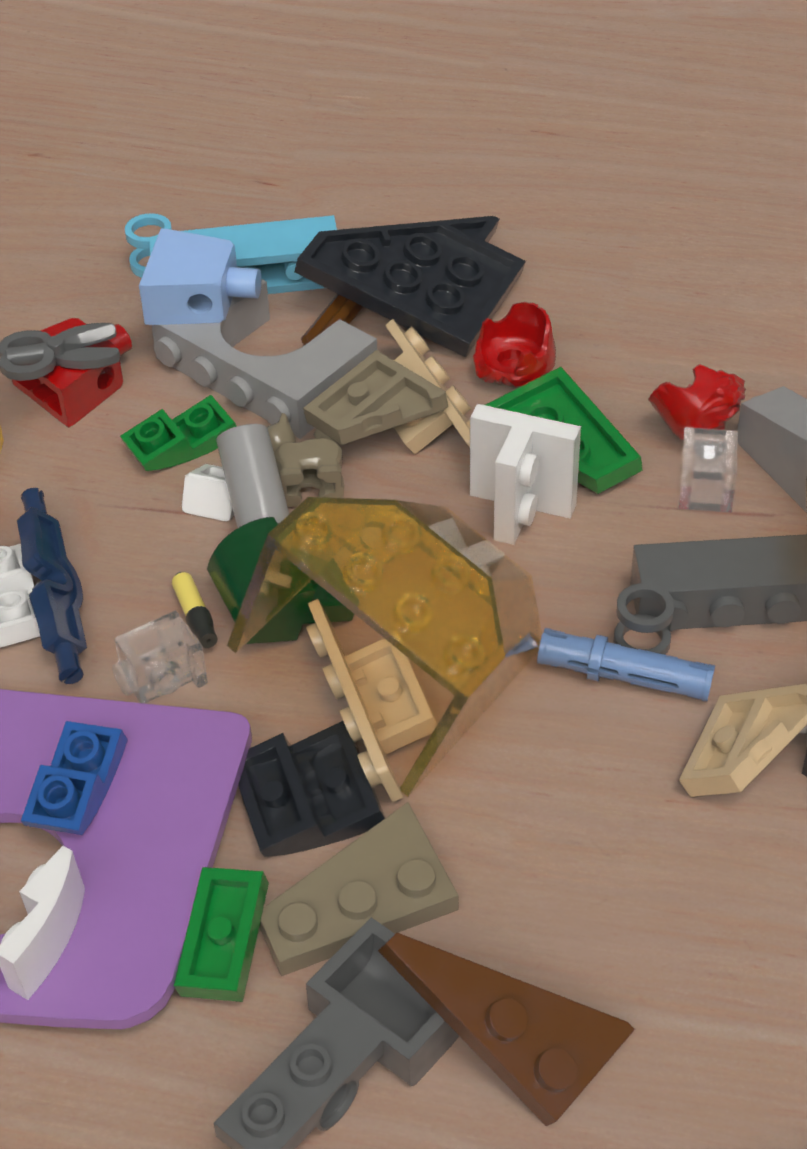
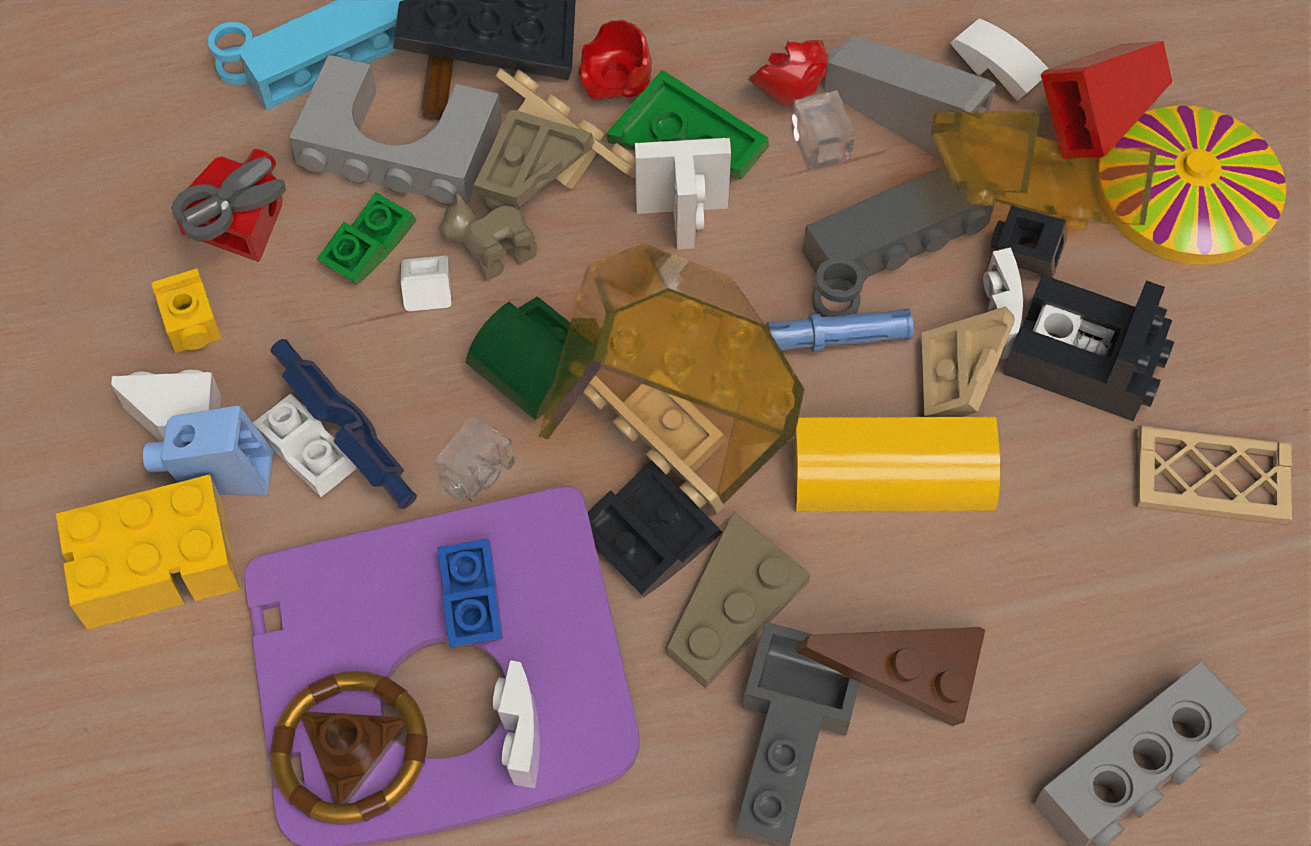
camera: 25 degrees left, 15 degrees up
(193, 279) = (314, 87): light blue torso -> none
(196, 613) = (471, 401): piece -> none
(221, 934) = (653, 675): green plate -> none
(252, 474) = (468, 271): light grey brick -> none
(619, 816) = (896, 464): none -> yellow brick

